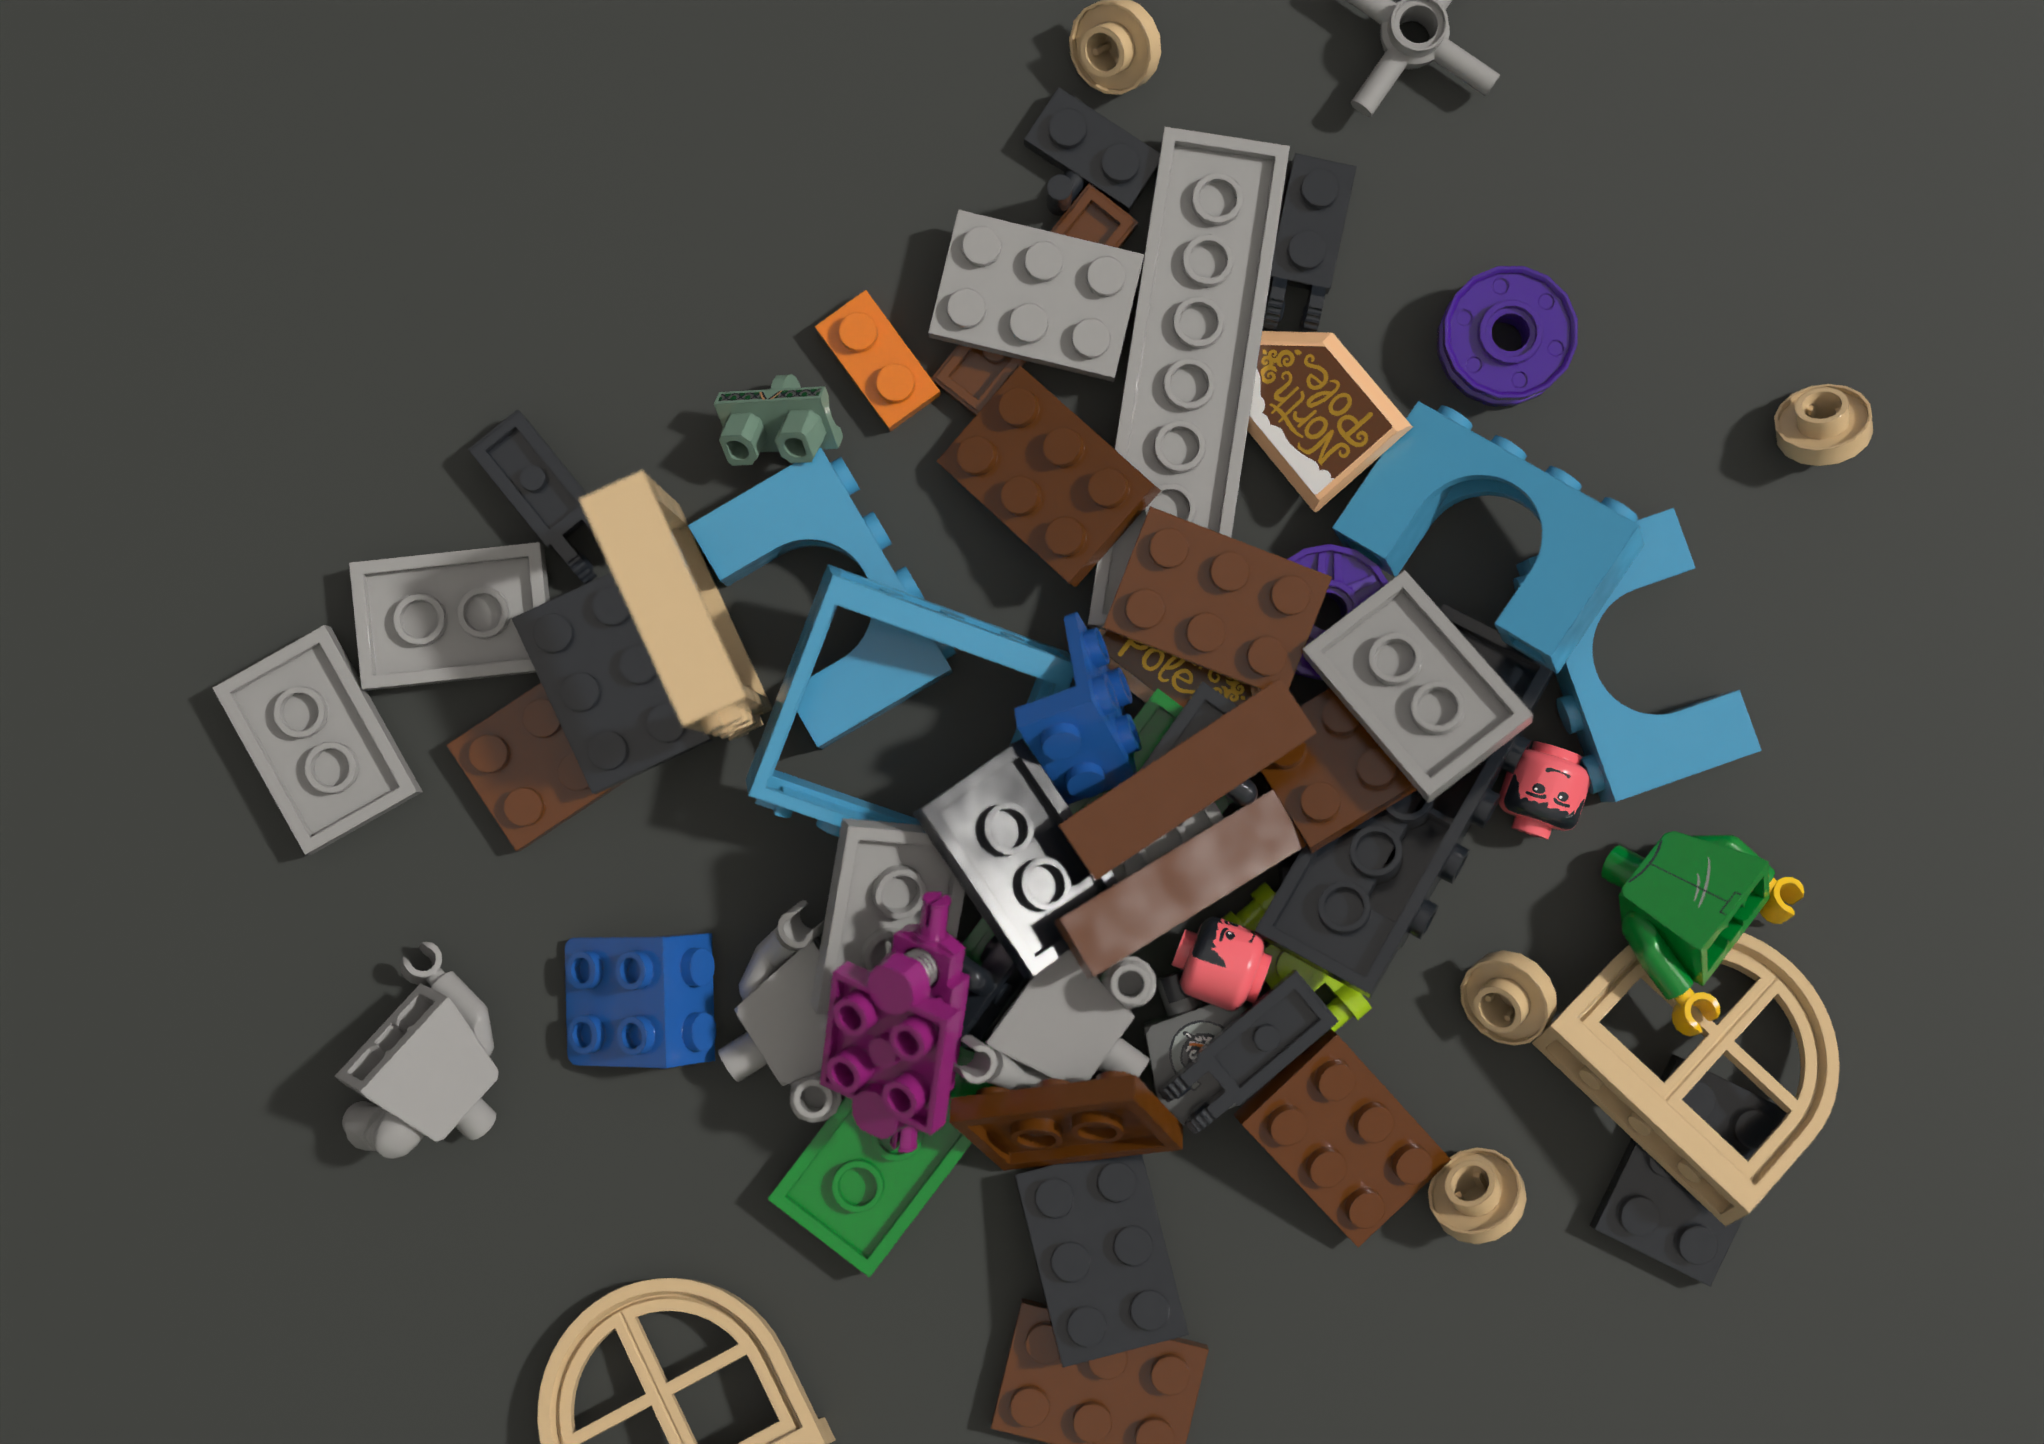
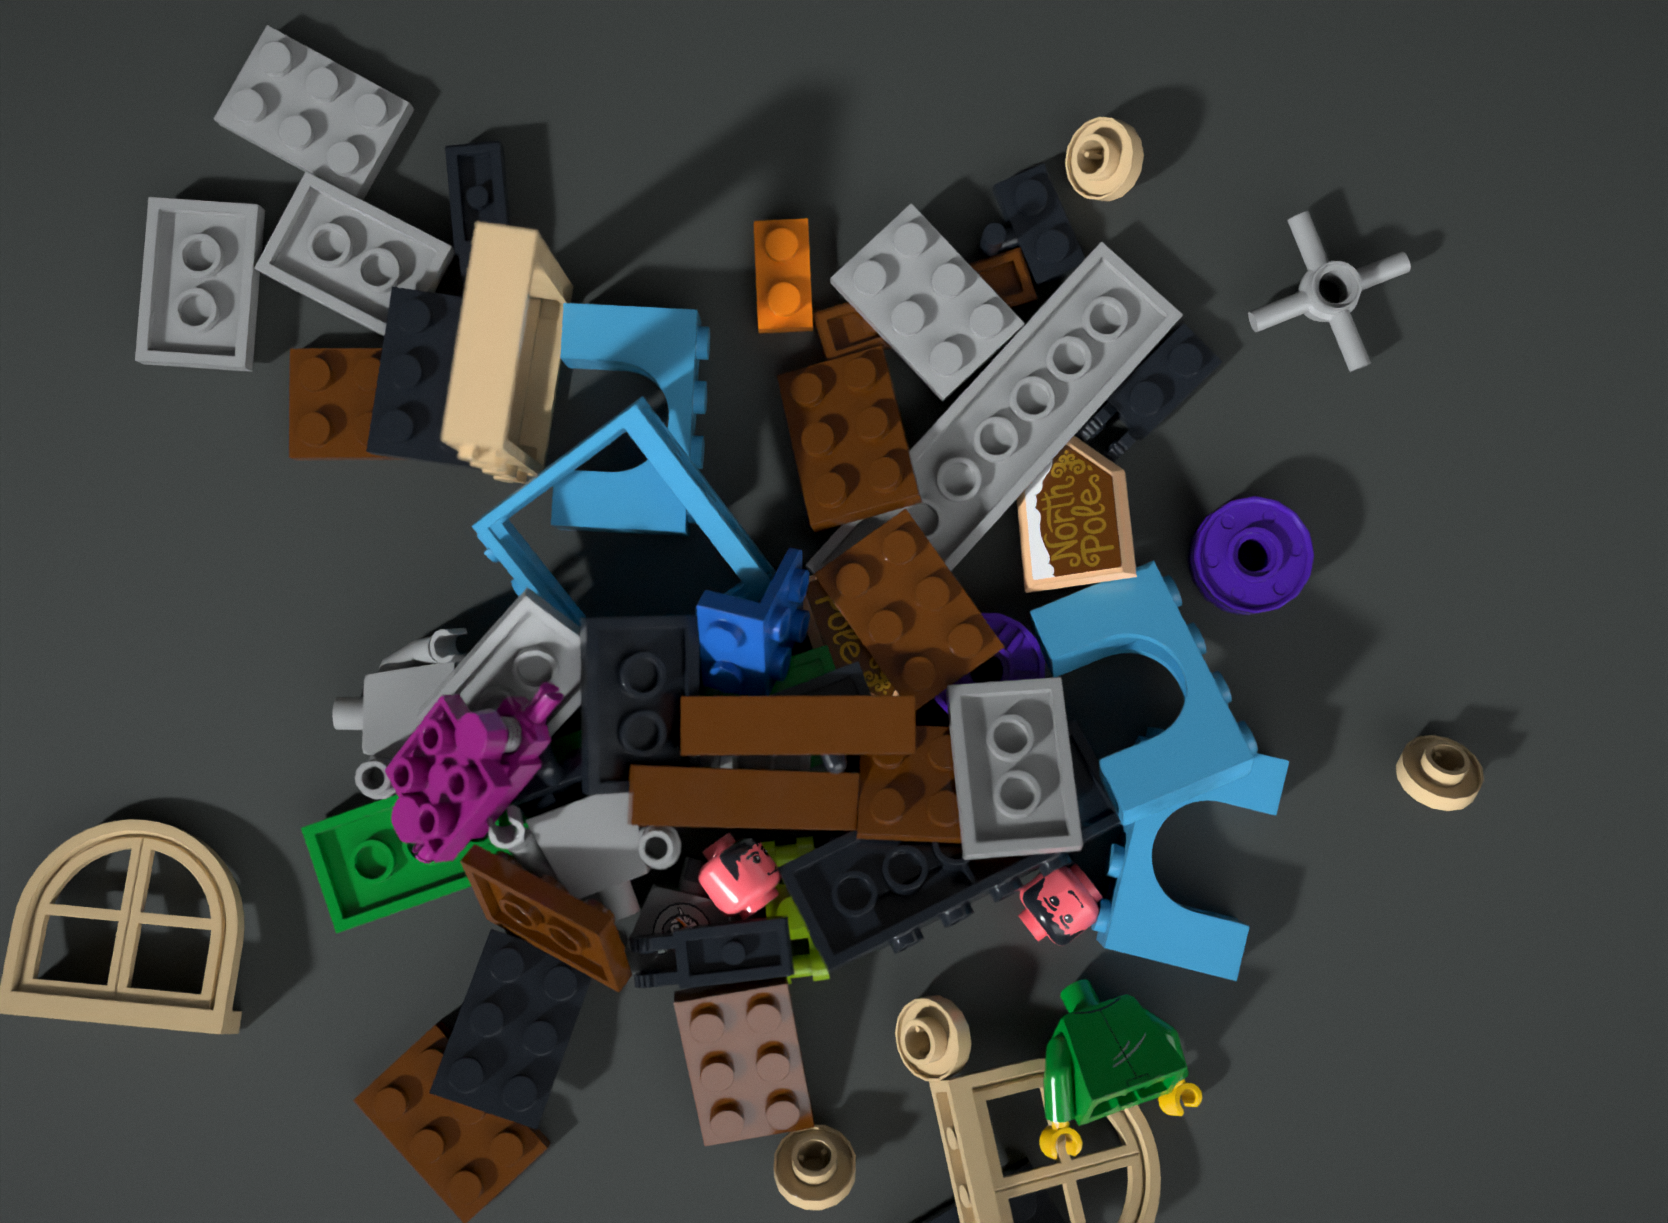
camera: 30 degrees right, 0 degrees up
(315, 501) = (314, 113): none -> light grey plate
(423, 1067) = (115, 569): light grey torso -> none
(640, 1001) = (306, 625): blue bracket -> none
(776, 420) = (681, 270): sand green hips -> none

